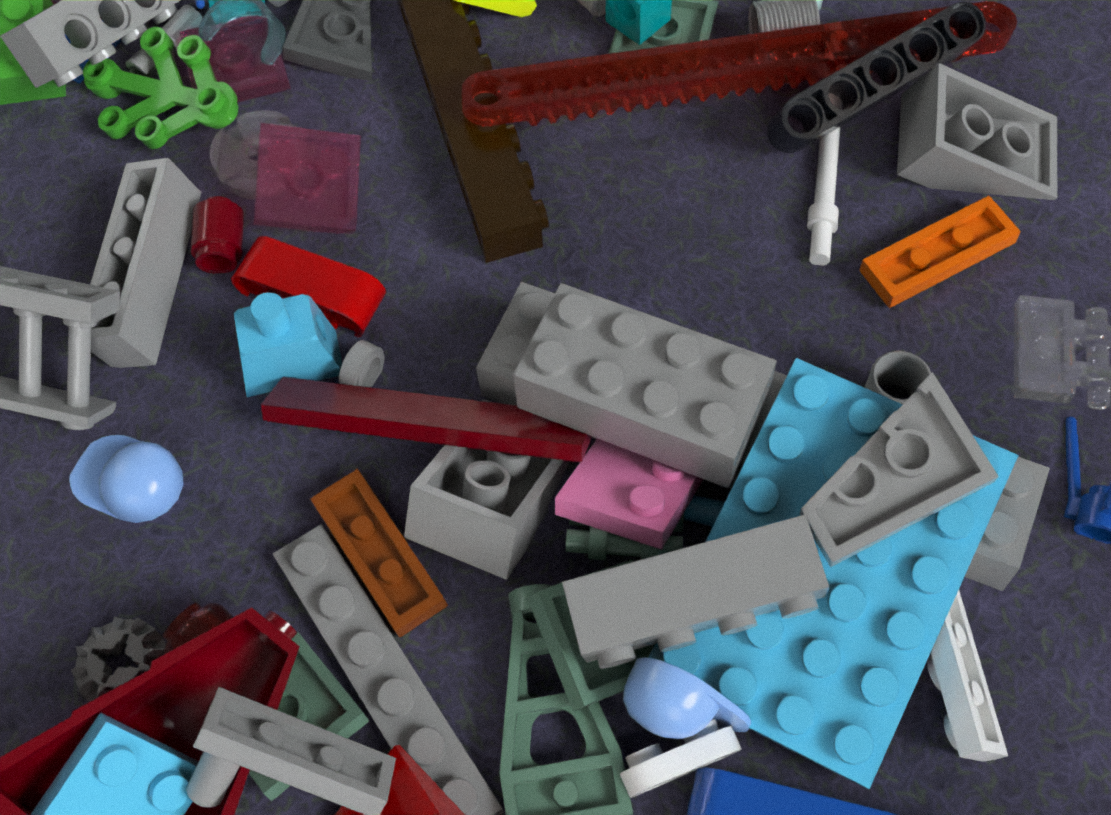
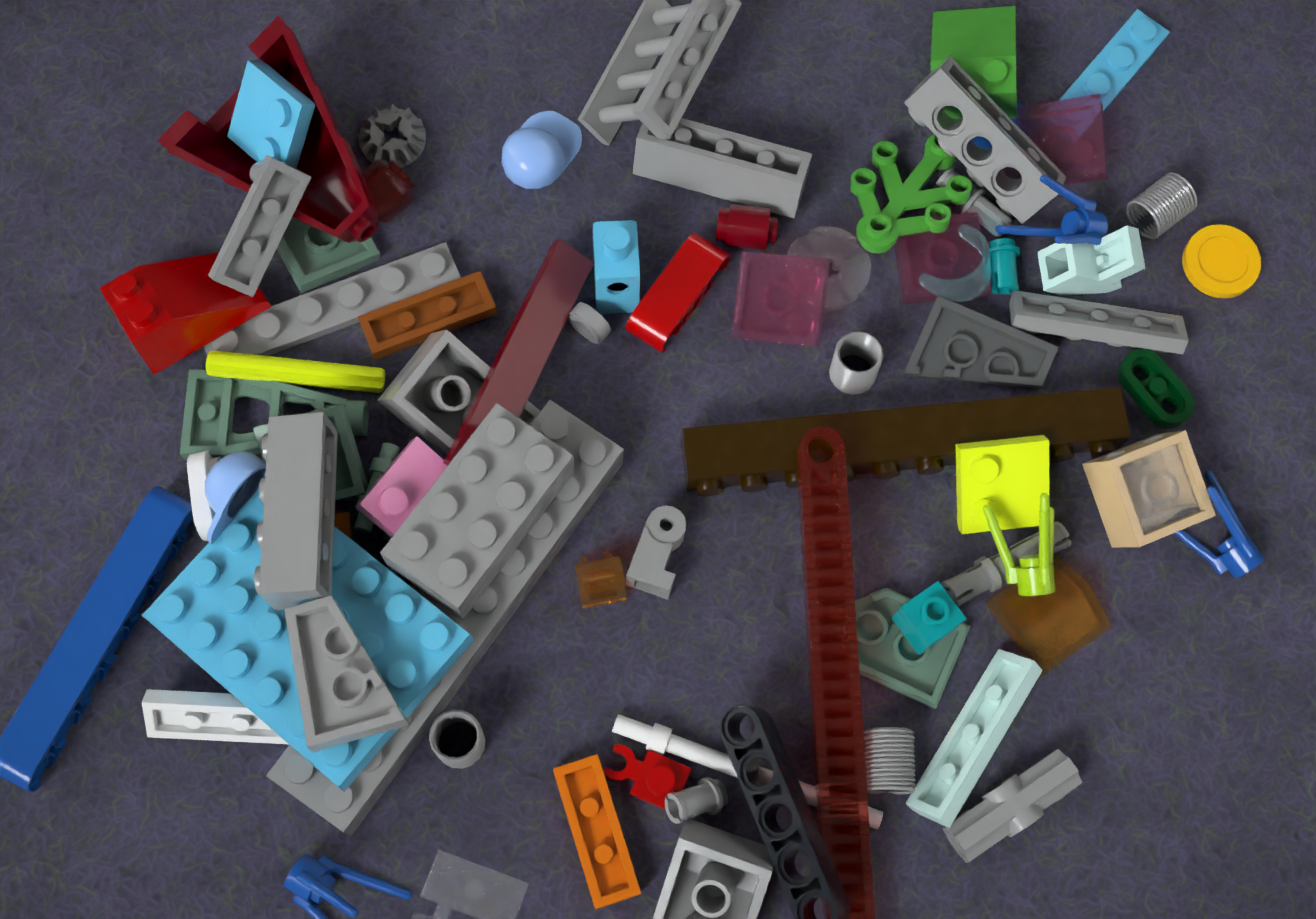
camera: 90 degrees right, 10 degrees up
(371, 104) = (860, 345): none -> light grey piece
(485, 698) = (295, 371): none -> neon yellow axle
(623, 250) = (660, 536): none -> light grey leg
(670, 293) = (600, 581): none -> clear orange tile
(866, 215) = (652, 777): none -> red plate
(871, 164) = (705, 797): none -> light grey pin

